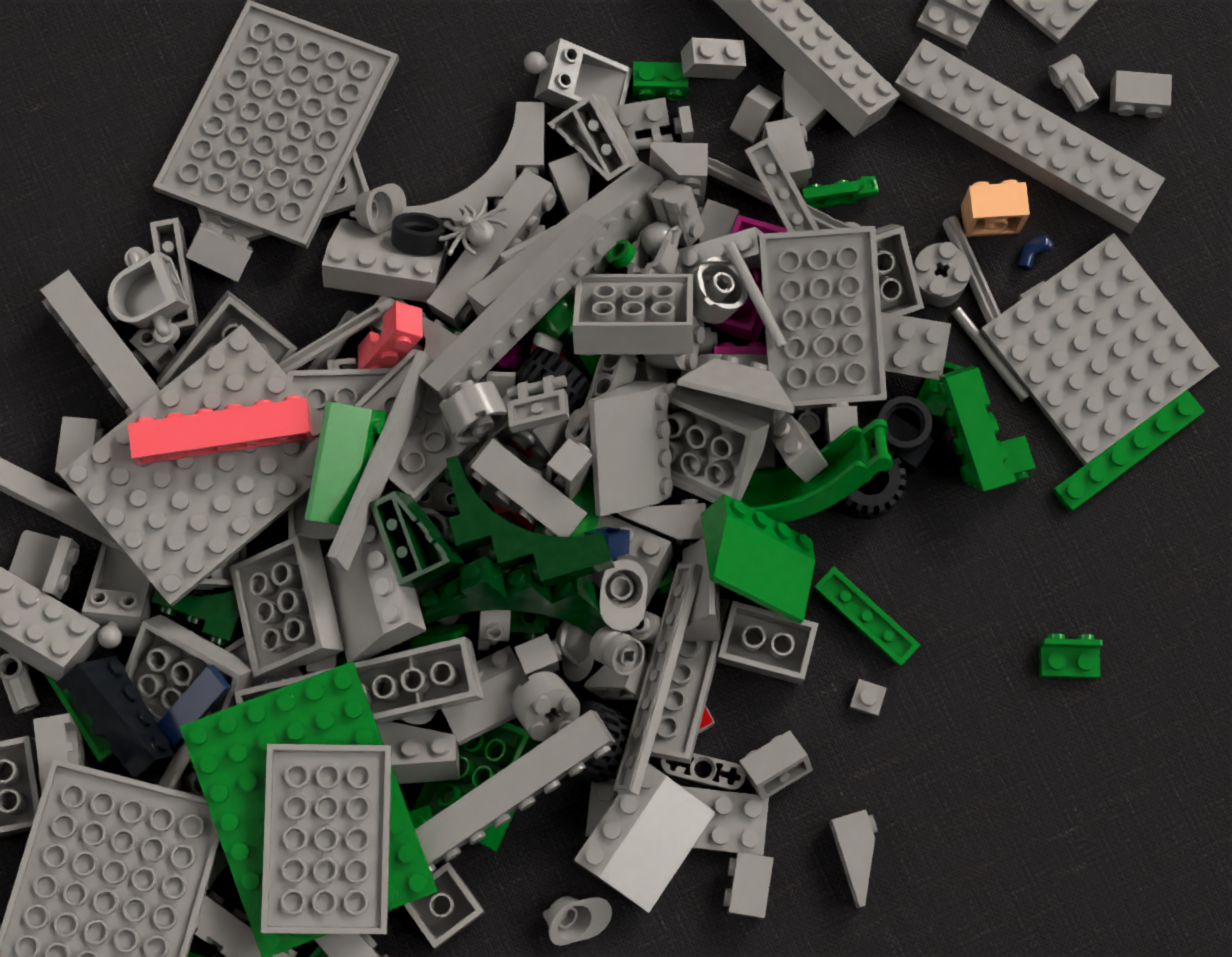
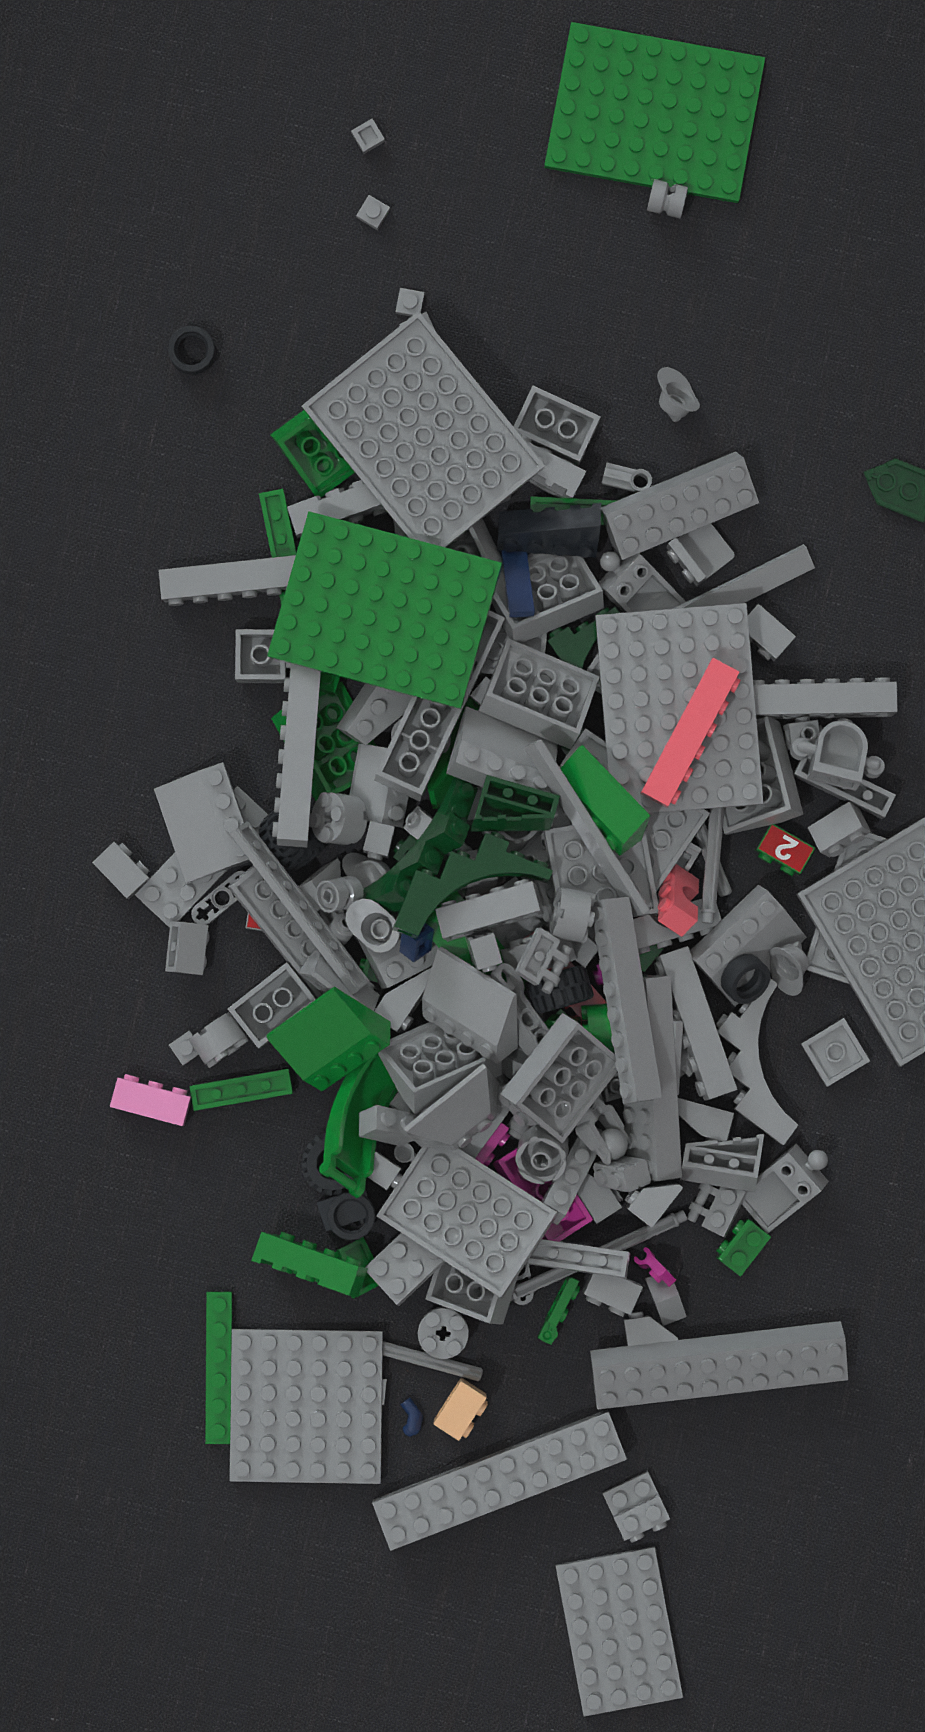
camera: 130 degrees right, 10 degrees up
(274, 289) = (784, 849): none -> red brick
(326, 839) = (353, 606): light grey plate -> none
(427, 121) = (835, 1052): none -> light grey plate
(474, 227) = (716, 1017): light grey animal -> none
(547, 342) = (587, 1004): light grey tile -> none
(576, 919) = (186, 737): light grey piece -> none
(621, 254) = (619, 1111): green tile -> none
(683, 124) = (694, 1235): light grey plate -> none
(713, 58) = (727, 1294): light grey brick -> none
(738, 130) = (657, 1271): none -> dark pink plate
(755, 295) = (516, 1177): light grey bar -> none
(838, 669) = (218, 1039): none -> light grey brick
(855, 846) = (94, 961): light grey slope -> none
(942, 691) = (151, 1100): none -> bright pink brick
(990, 354) = (361, 1325): light grey bar -> none
(1019, 458) = (271, 1280): green brick -> none
(1069, 657) = (108, 1207): green bracket -> none
(1070, 76) = (521, 1549): light grey piece -> none
(1140, 93) = (469, 1590): light grey brick -> none

